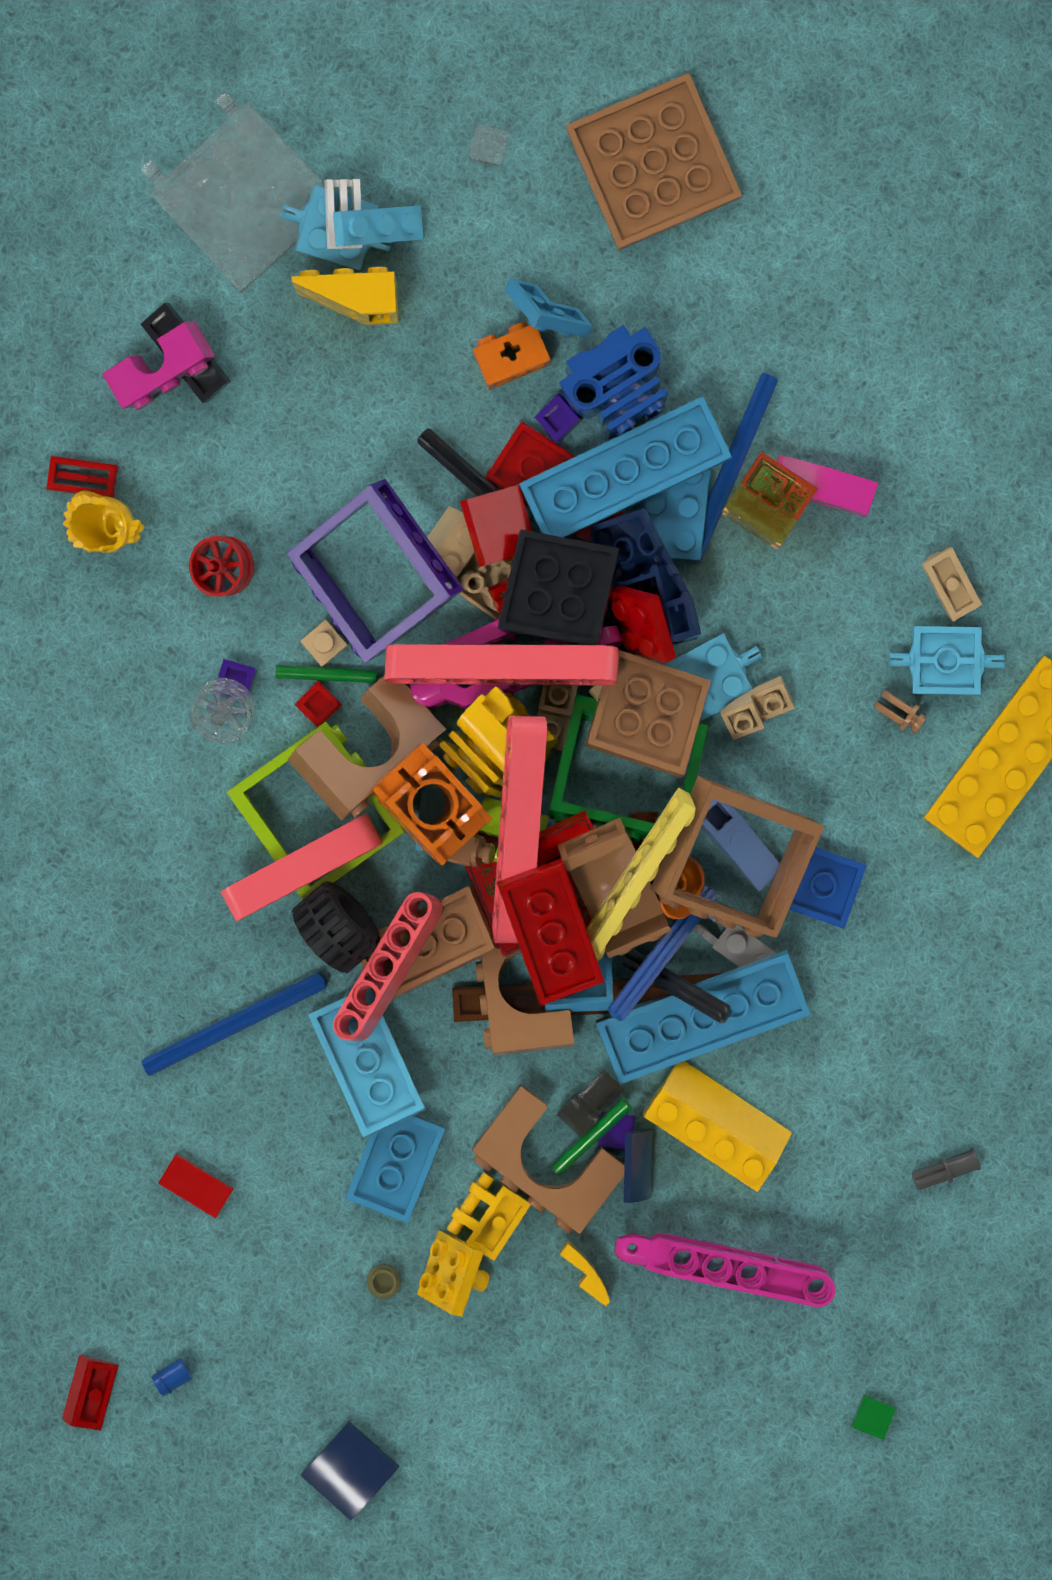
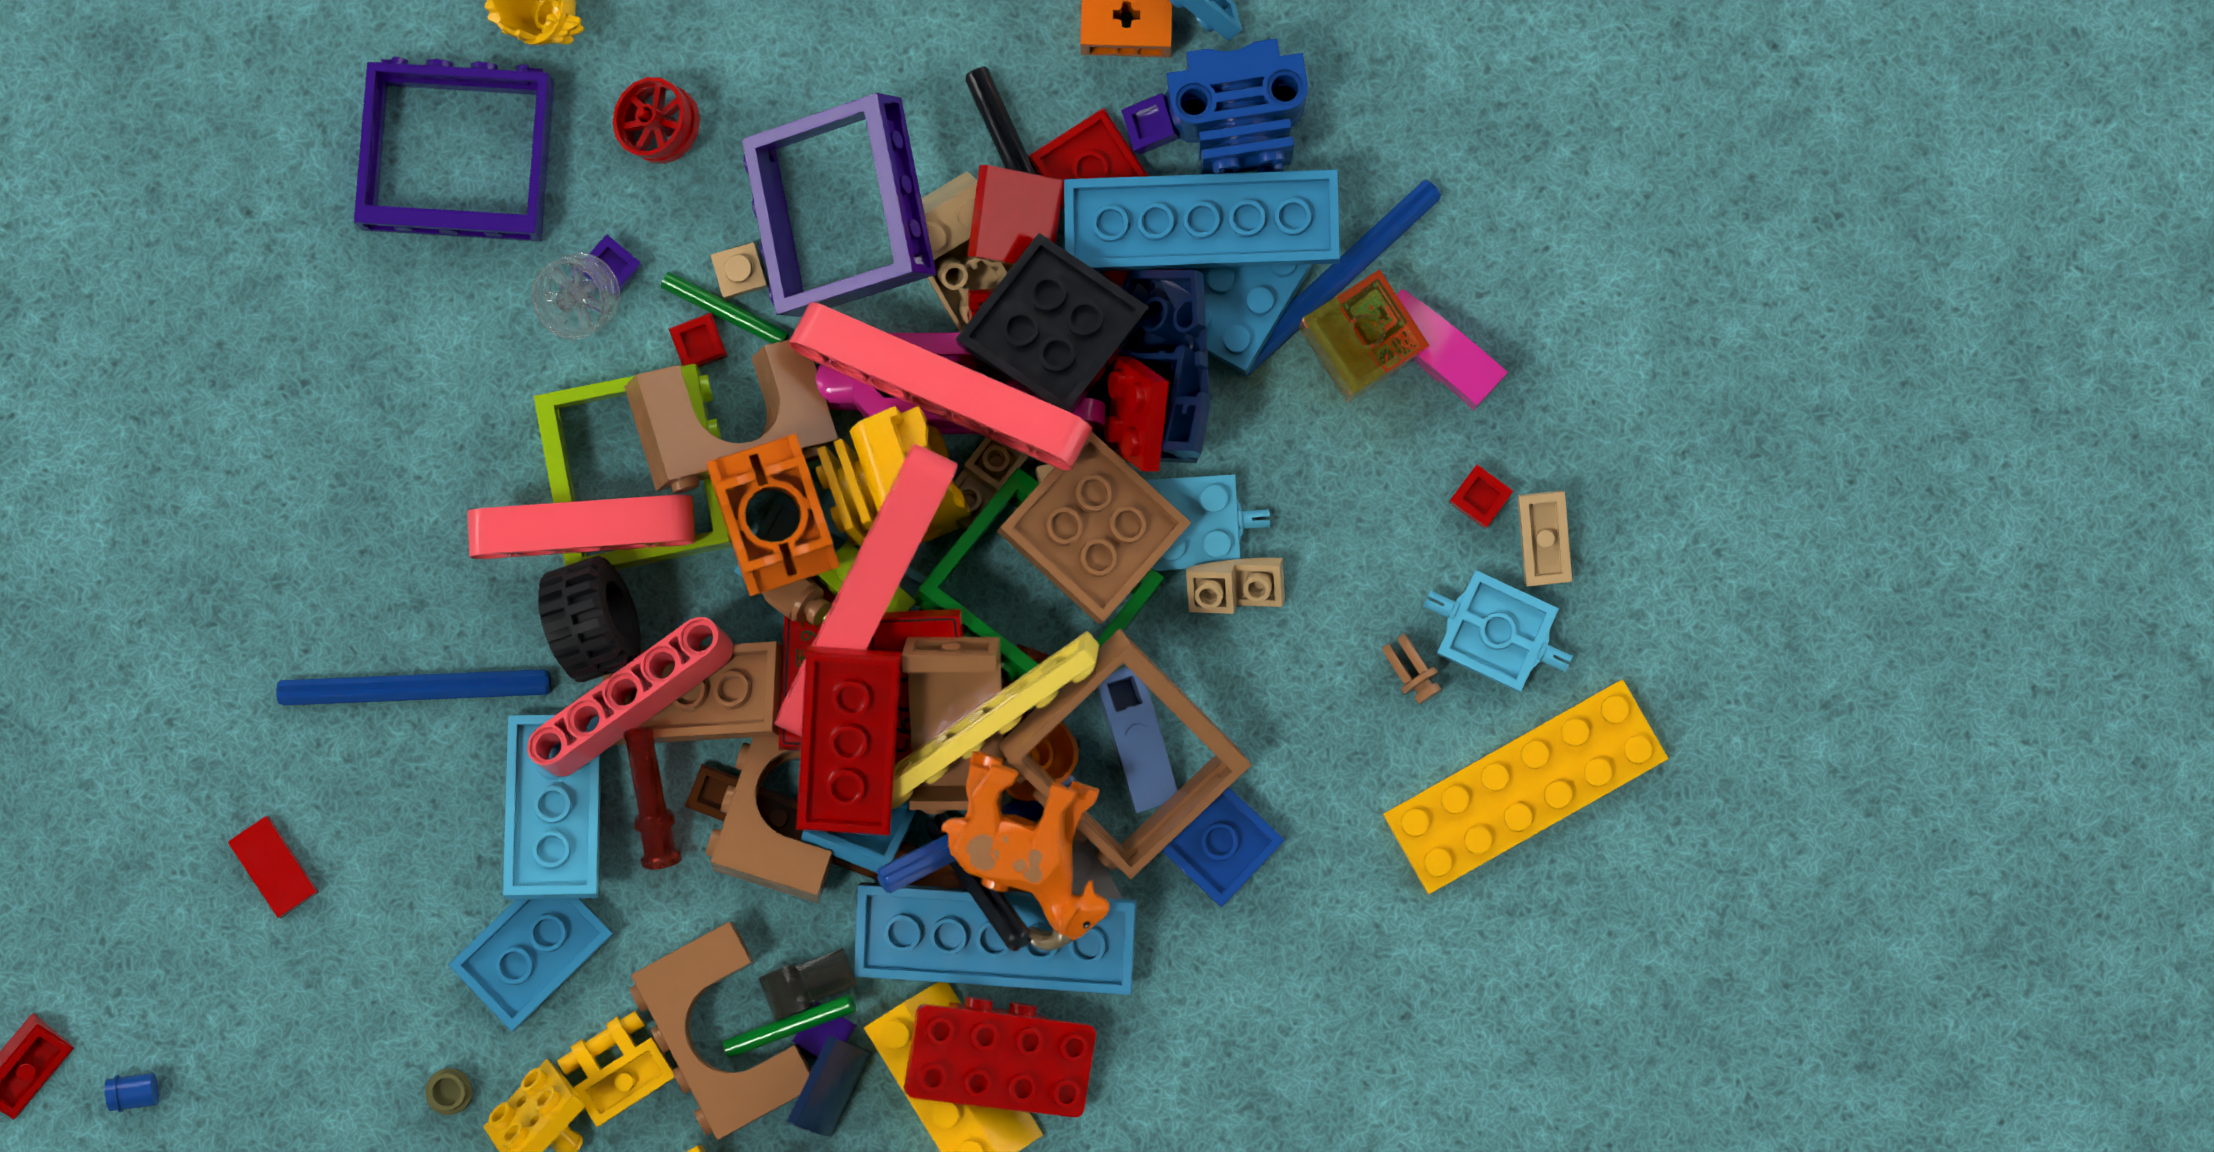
camera: 25 degrees right, 5 degrees down
(59, 599) = (442, 75): none -> dark purple window
(438, 1040) = (654, 818): none -> clear red pin
(702, 953) = (1027, 853): none -> orange animal
(743, 1095) = (999, 1058): none -> red bracket
(895, 574) = (1480, 496): none -> red plate

